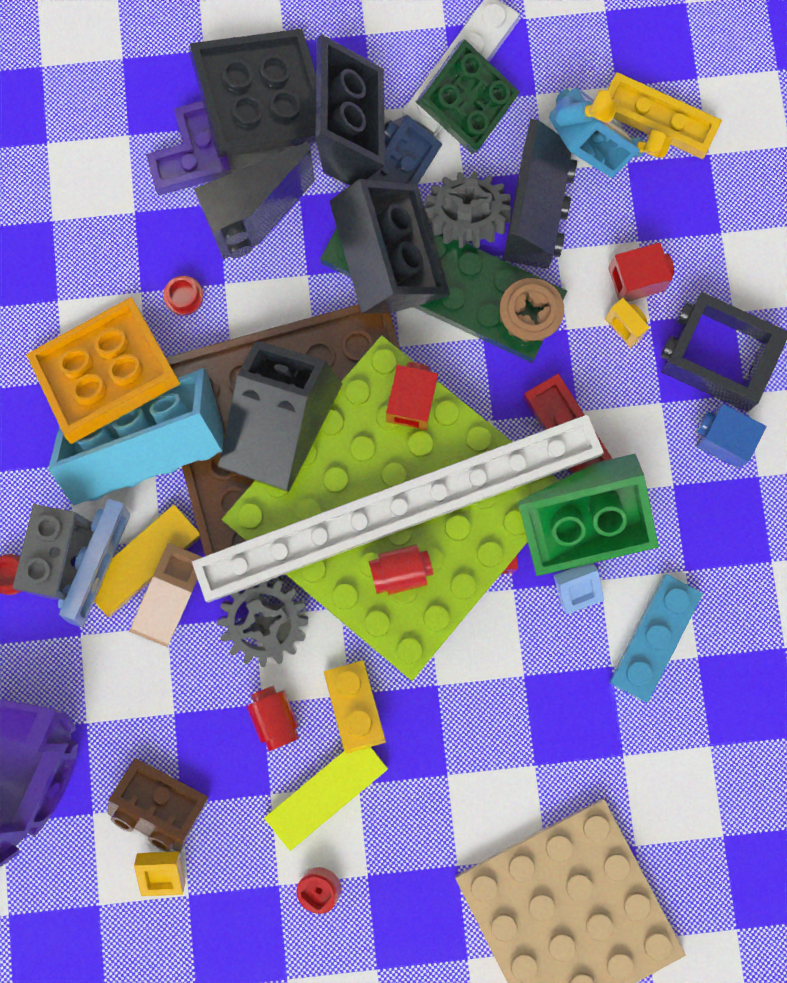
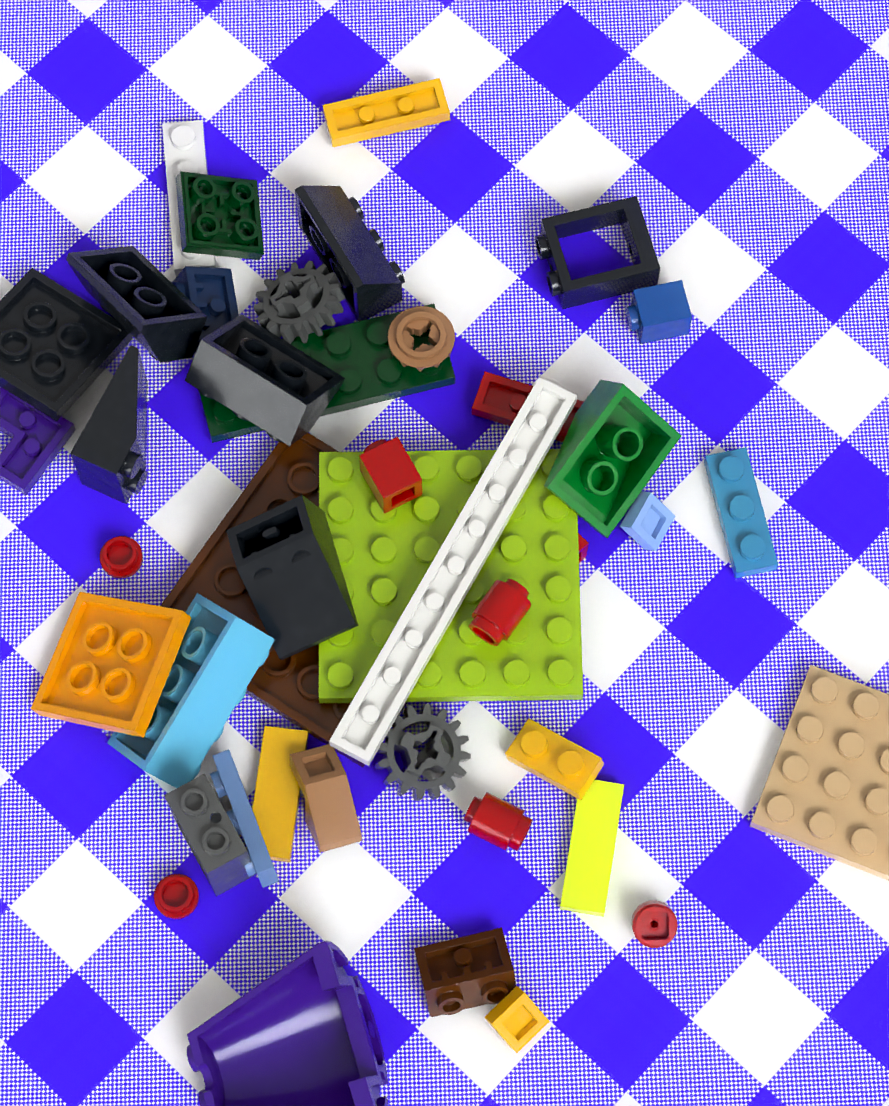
camera: 40 degrees left, 10 degrees down
(595, 135) = (348, 162): dark azure torso -> none
(628, 322) = (503, 289): yellow plate -> none
(641, 272) = (480, 243): red brick -> none

